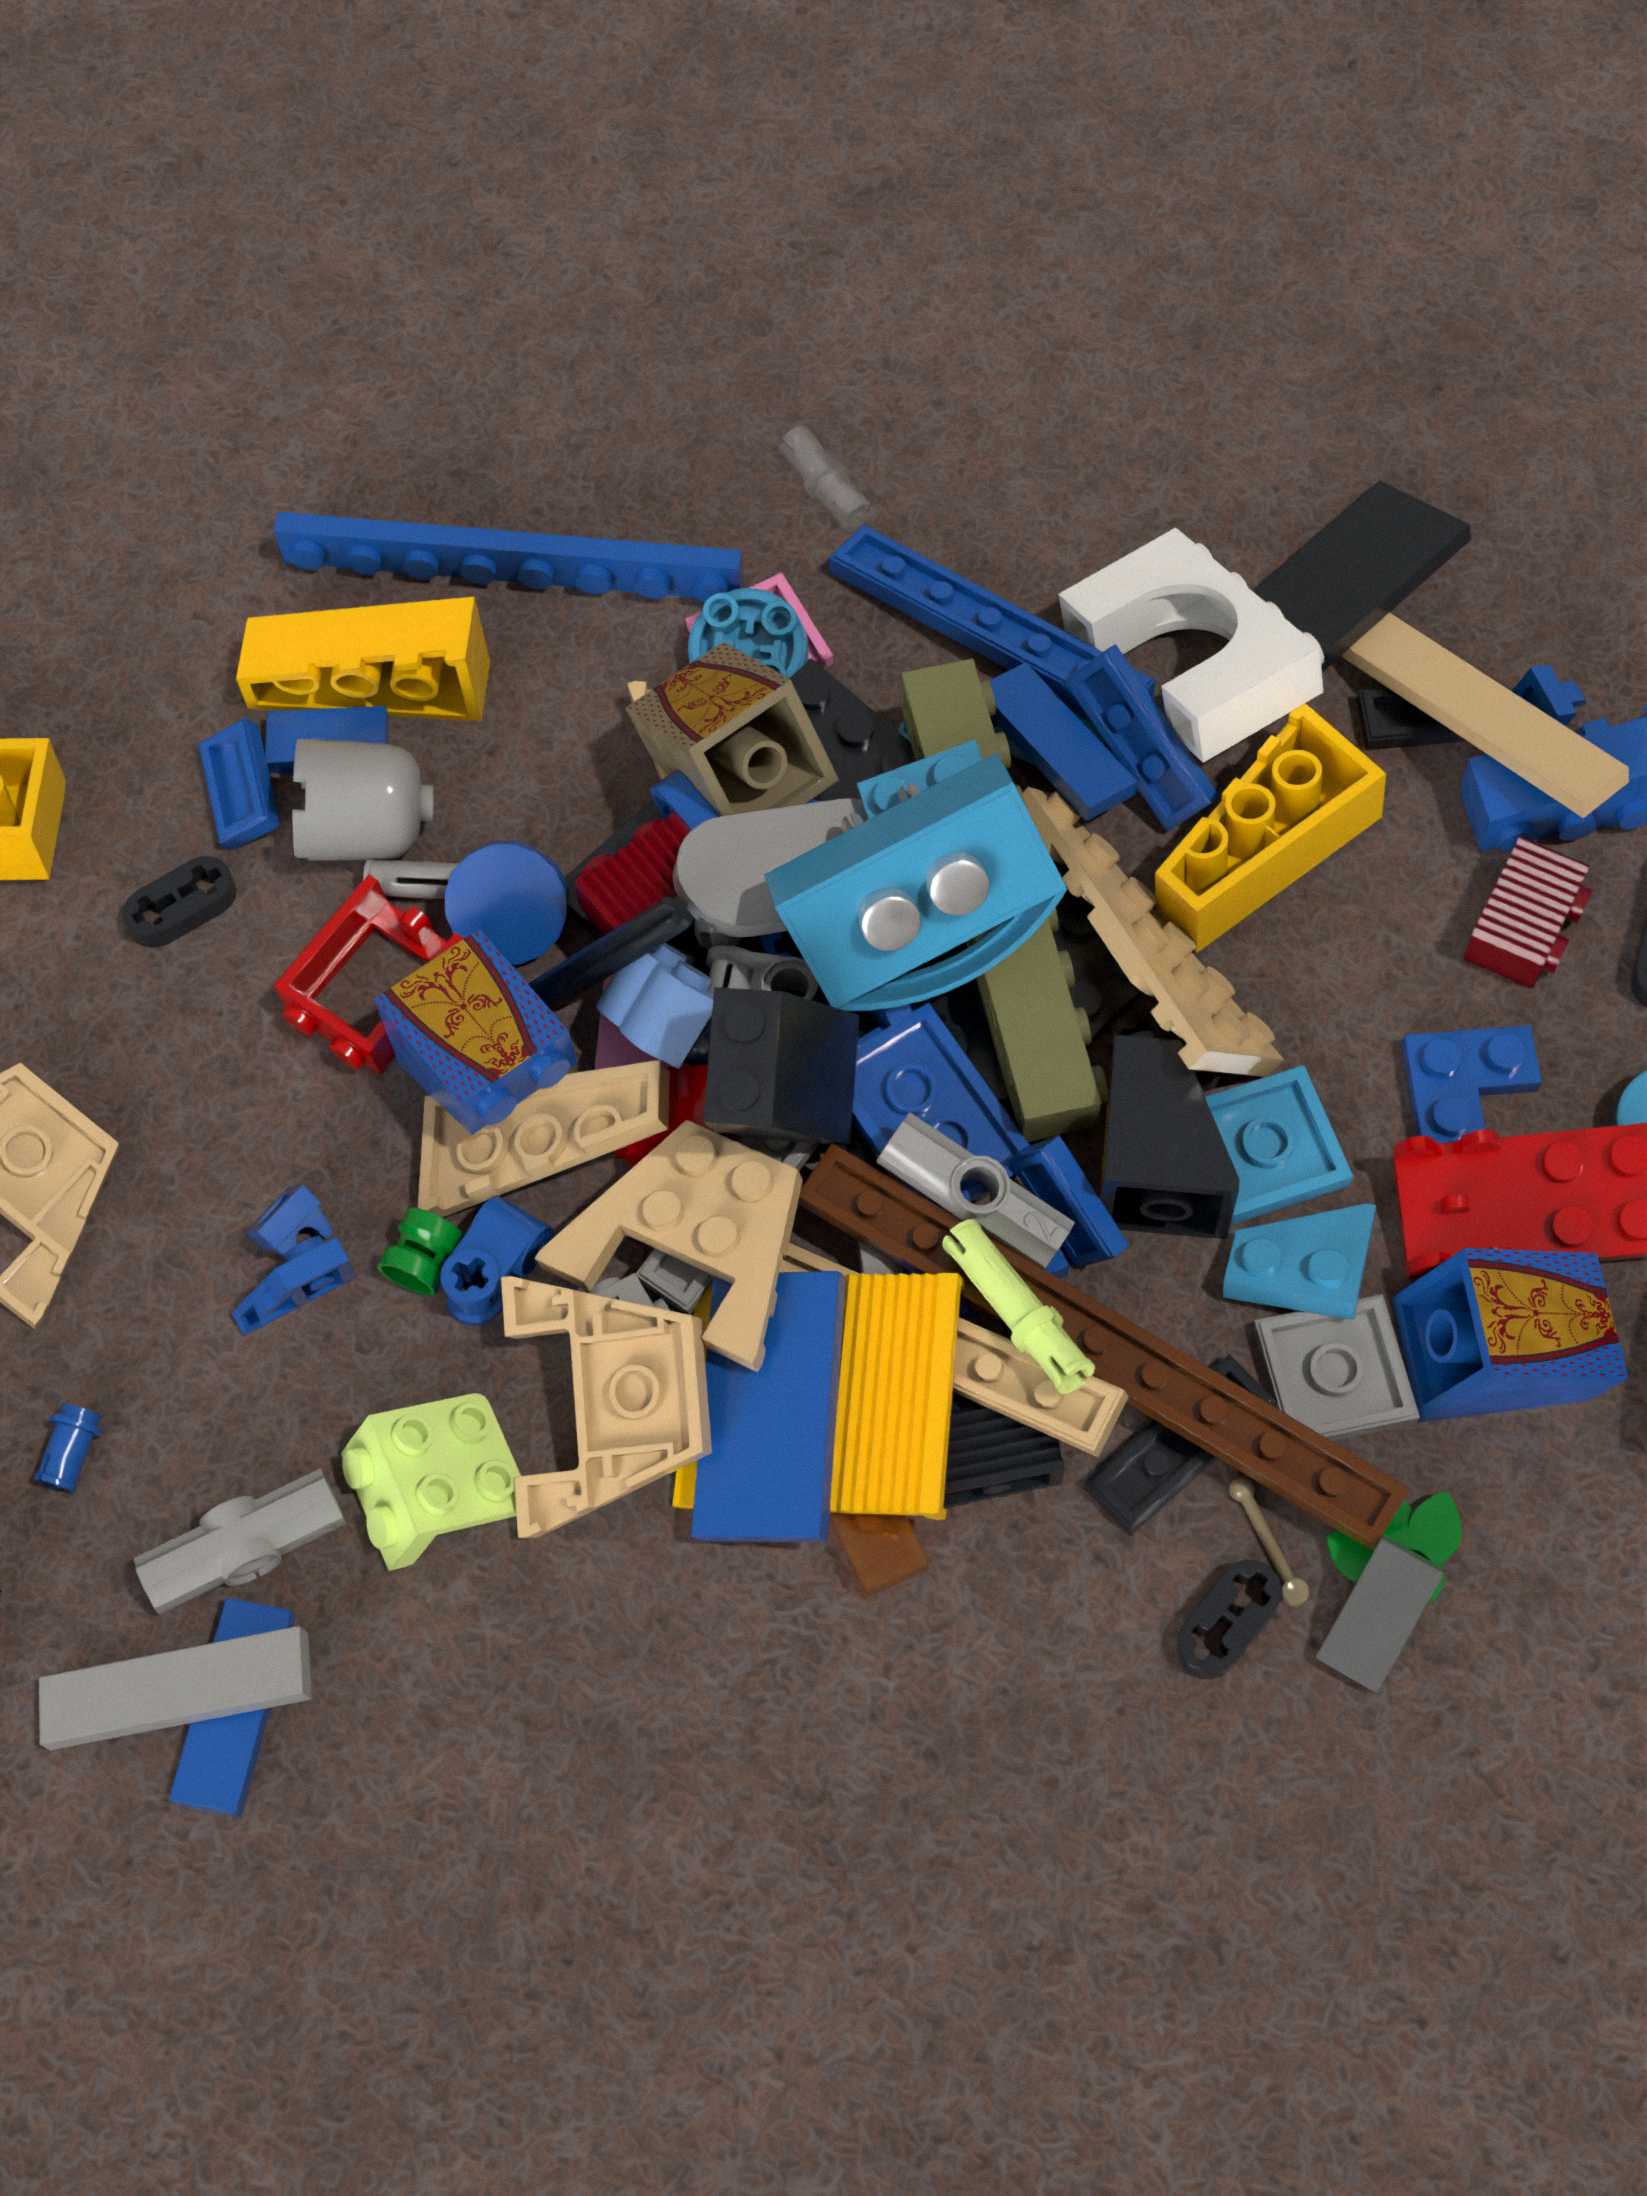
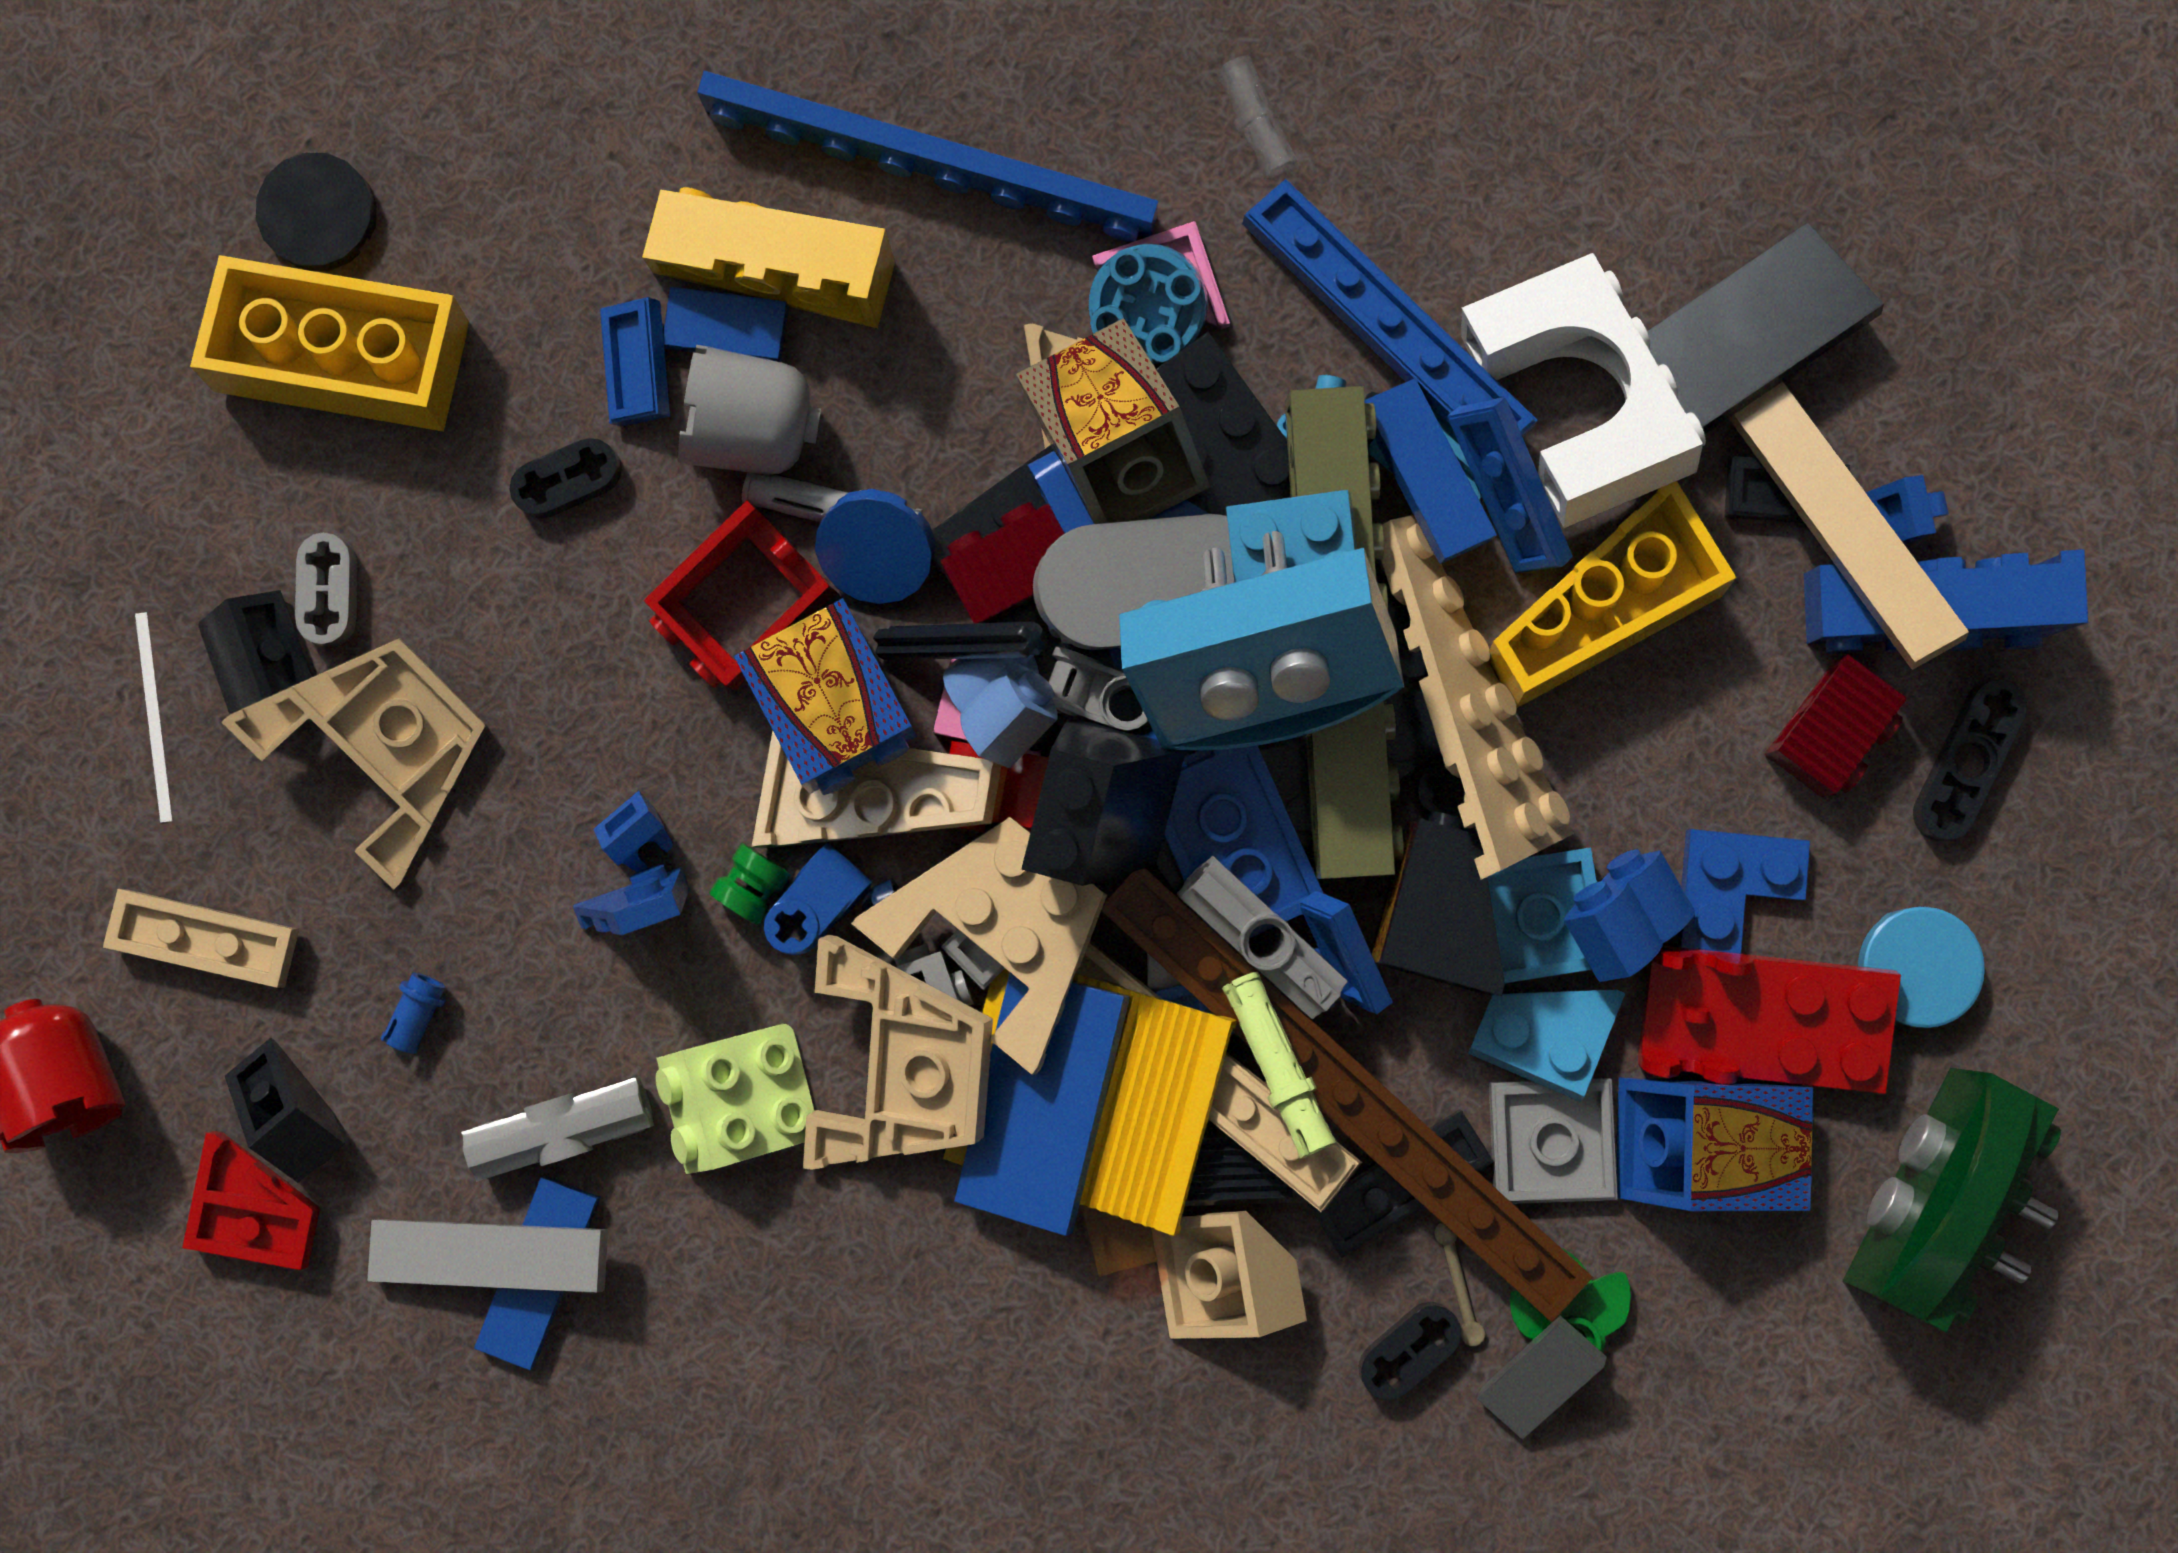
camera: 10 degrees right, 20 degrees up
(1006, 1565) = (1226, 1278): none -> tan slope
(1356, 1112) = (1628, 914): none -> blue brick

